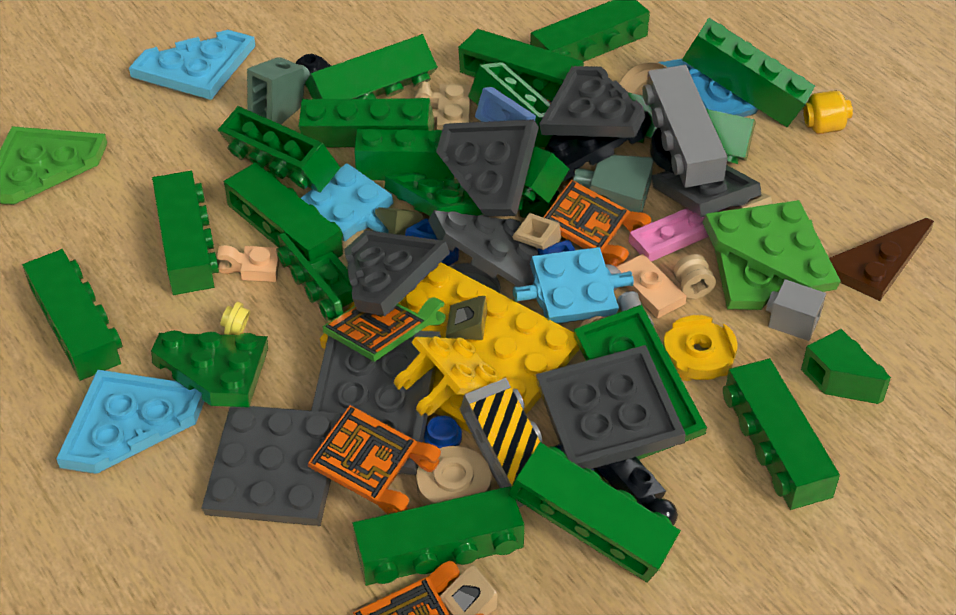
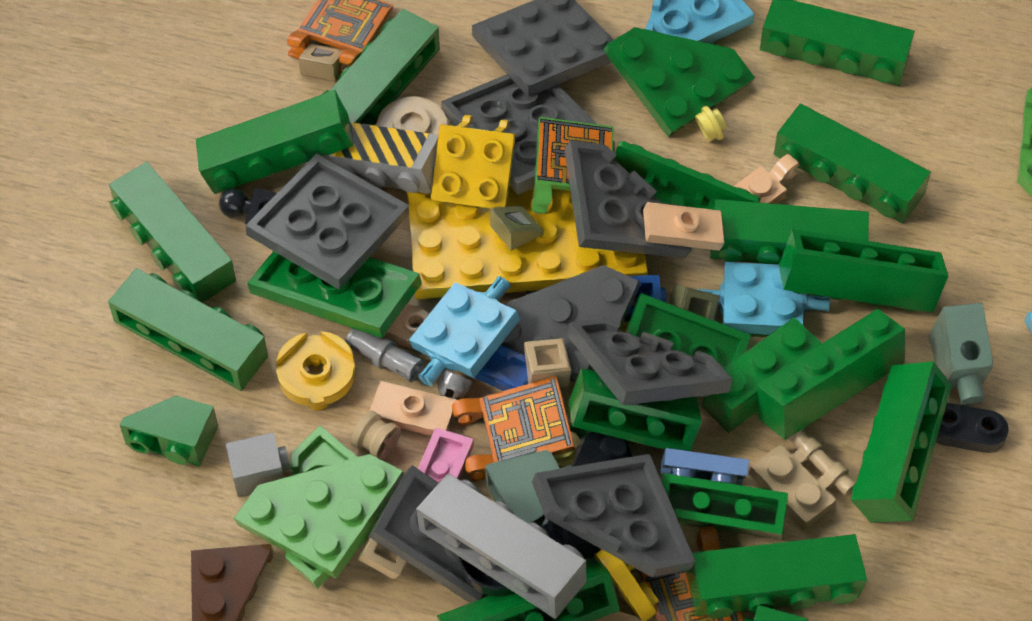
camera: 140 degrees right, 10 degrees up
(359, 231) = (683, 226): none -> light nougat plate
(368, 456) = (471, 73): flag -> none
(738, 522) = (171, 233): none -> brick

